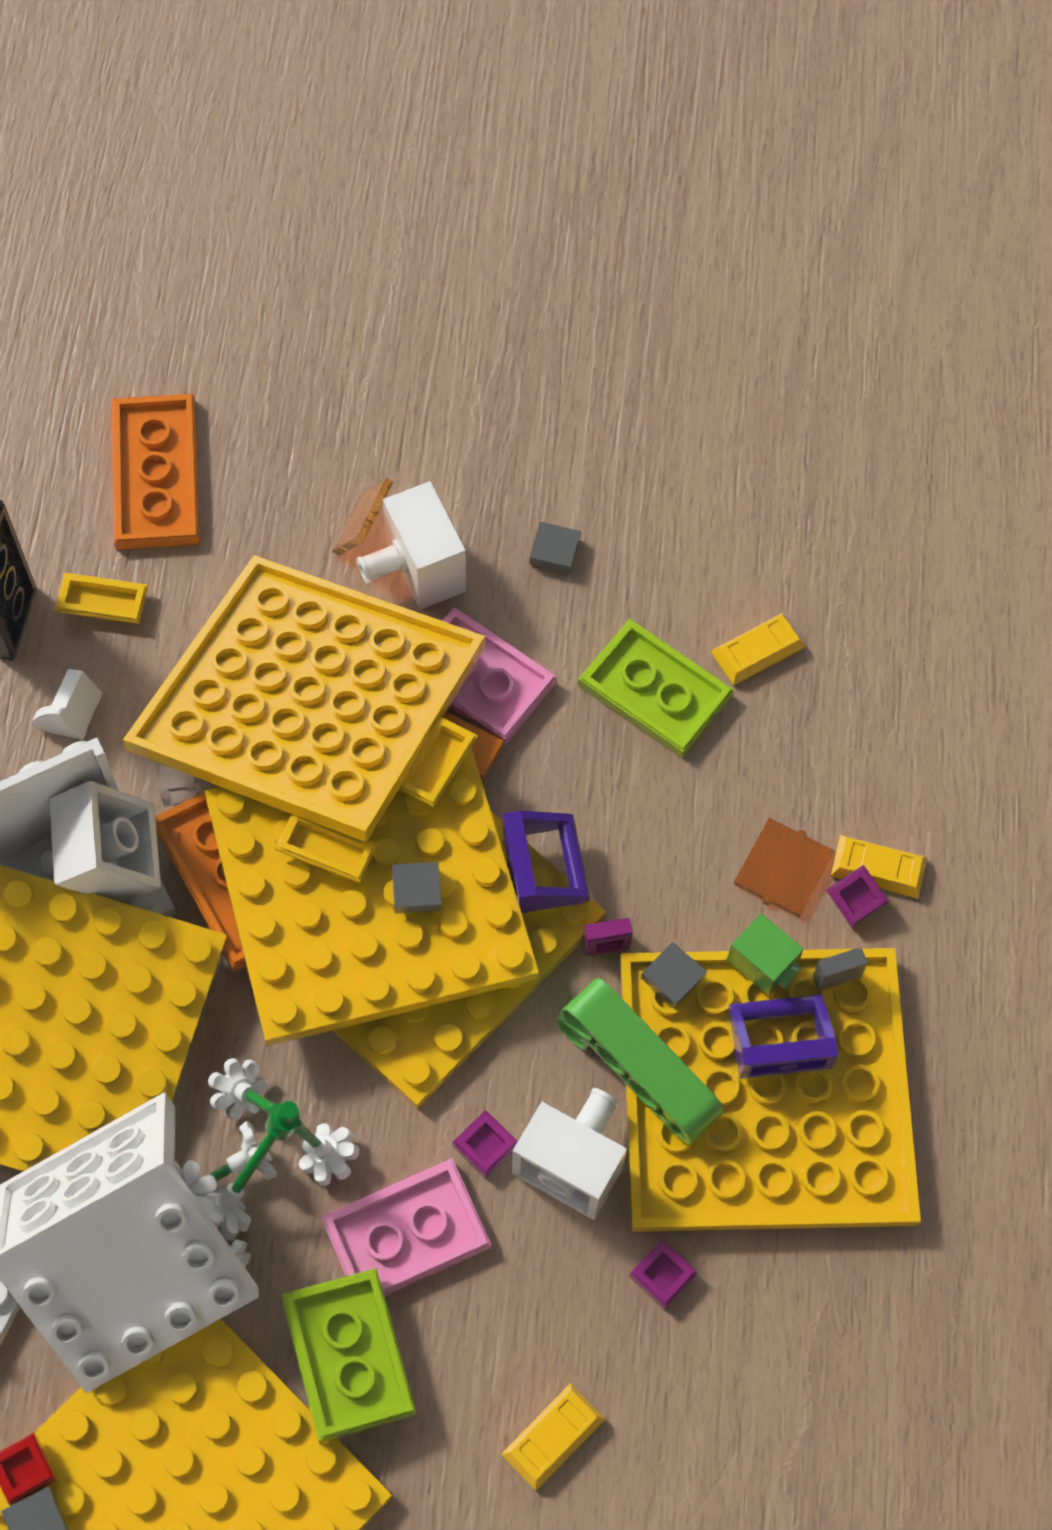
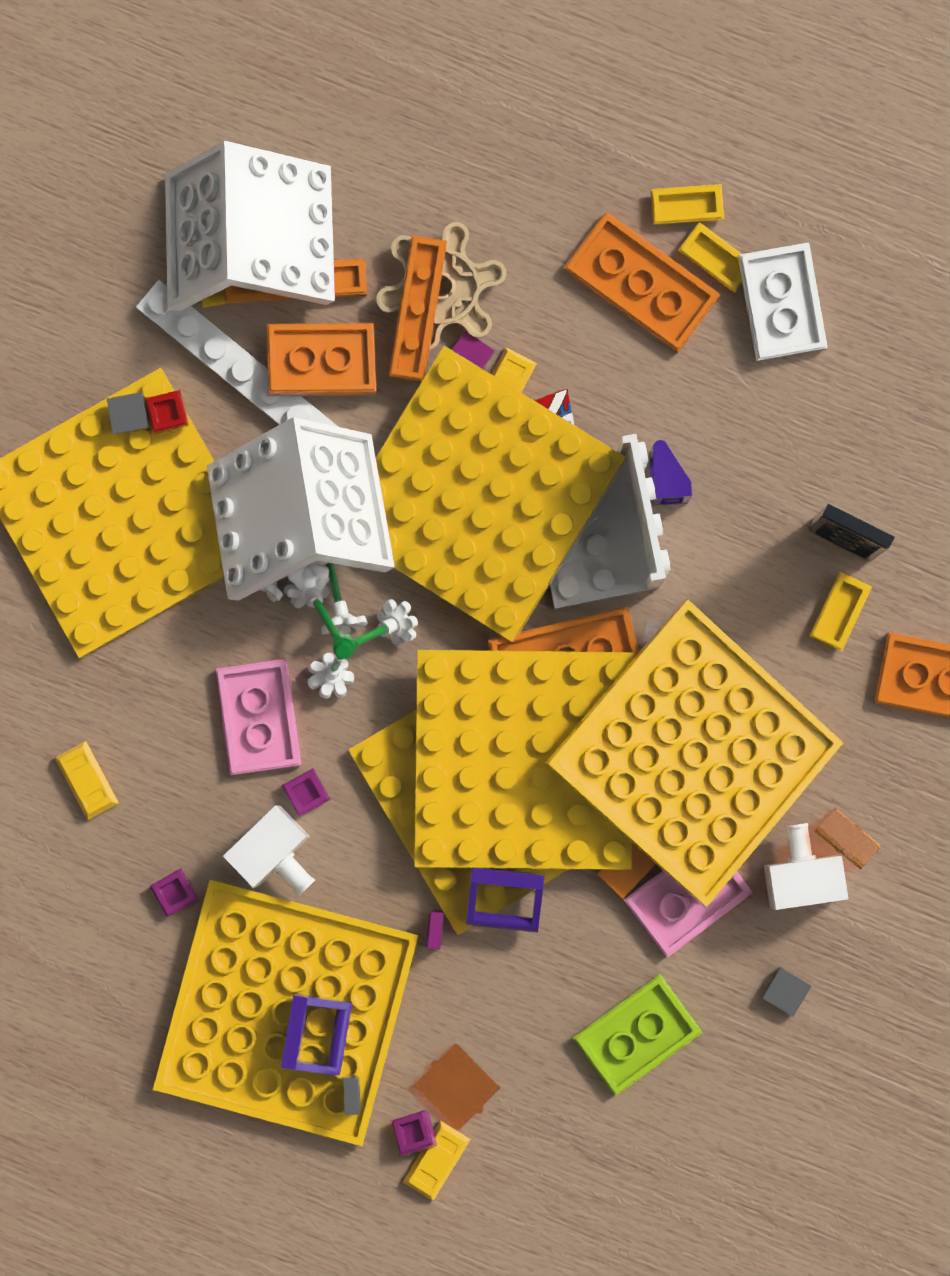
camera: 115 degrees right, 20 degrees up
(71, 707) = (745, 567): white tile -> none
(103, 843) = (603, 564): white brick -> none
(326, 848) = (552, 731): yellow tile -> none
(348, 1355) = (179, 652): lime tile -> none
(416, 887) = (502, 792): dark grey tile -> none
(437, 761) = (603, 838): yellow tile -> none
(640, 1059) = (325, 921): bright green beam -> none
(673, 975) = (386, 969): dark grey tile -> none
(758, 649) = (649, 1129): yellow tile -> none
(766, 955) = (378, 1043): bright green brick -> none

